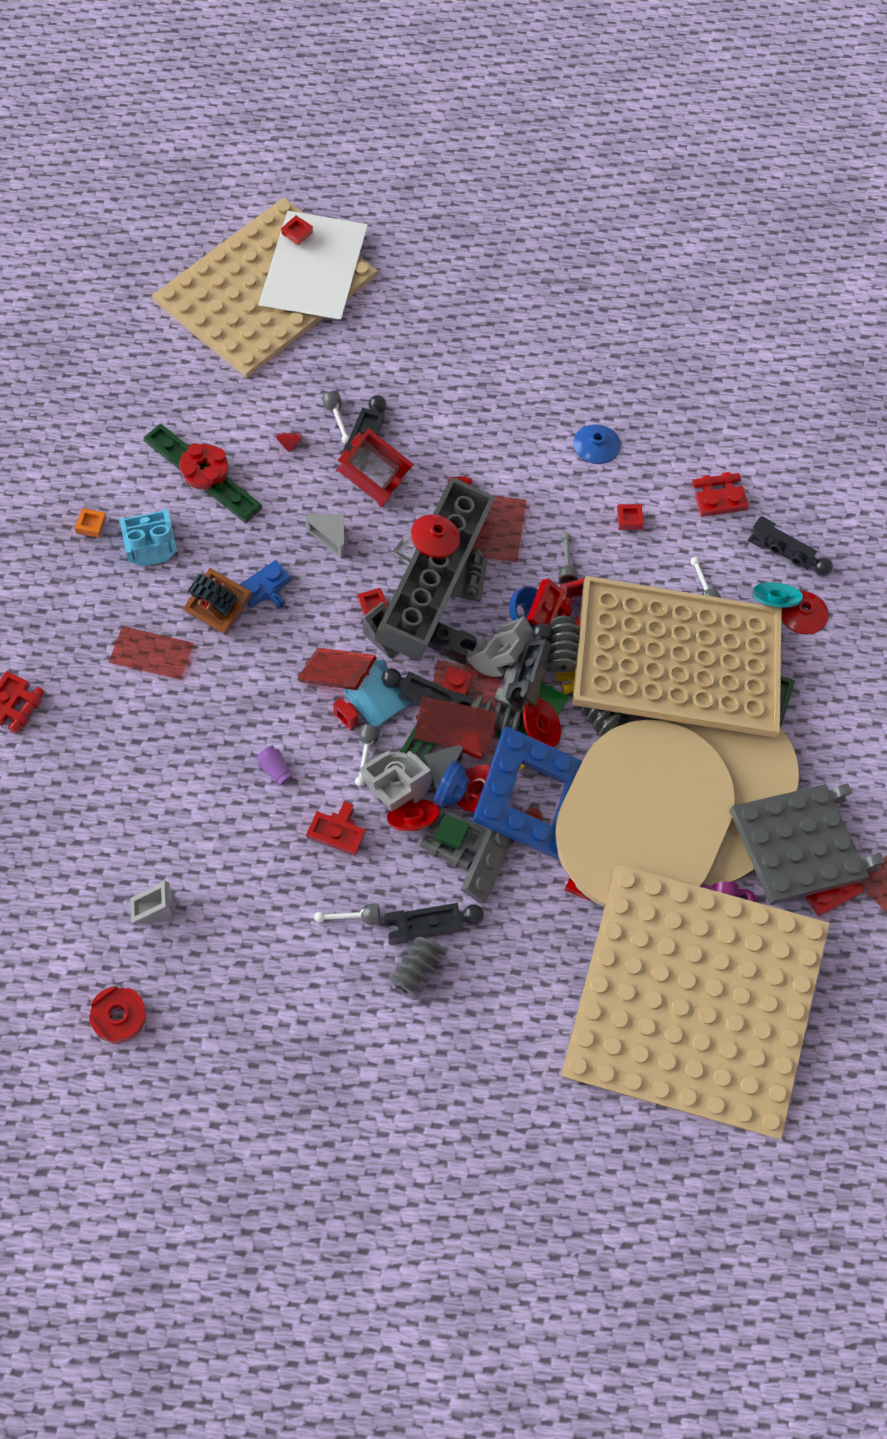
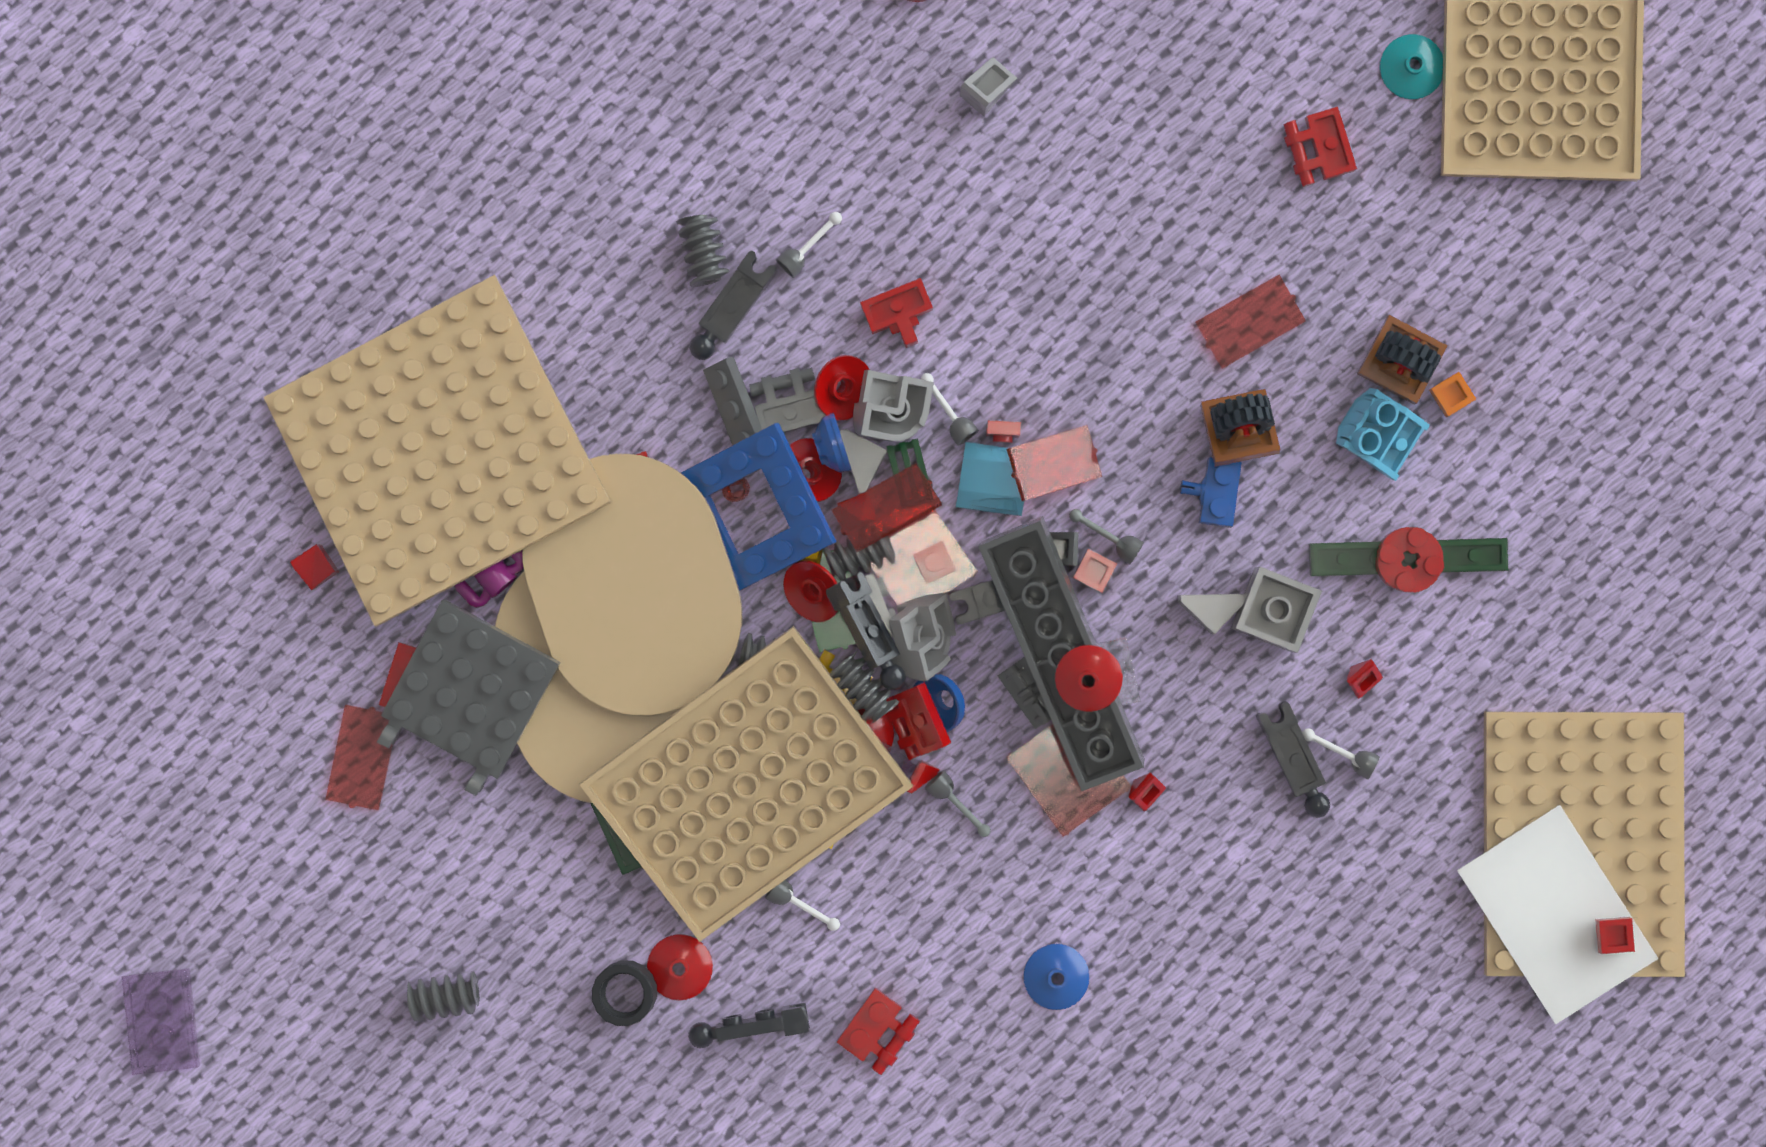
camera: 140 degrees right, 25 degrees up
(95, 558) = (1402, 359): none -> plate
(274, 764) = (1017, 317): medium lavender cone -> none
(297, 497) = (1276, 609): none -> light grey brick
(342, 599) = (1126, 547): none -> hinge
(374, 466) = (1241, 716): red window -> none
(415, 687) = (956, 512): black plate -> none
(451, 832) = (791, 401): dark green tile -> none
(630, 517) = (940, 913): red plate -> none
(777, 594) = (724, 963): teal dish -> none
(835, 1004) = (314, 566): none -> red slope
(859, 608) = (601, 1003): none -> black tyre

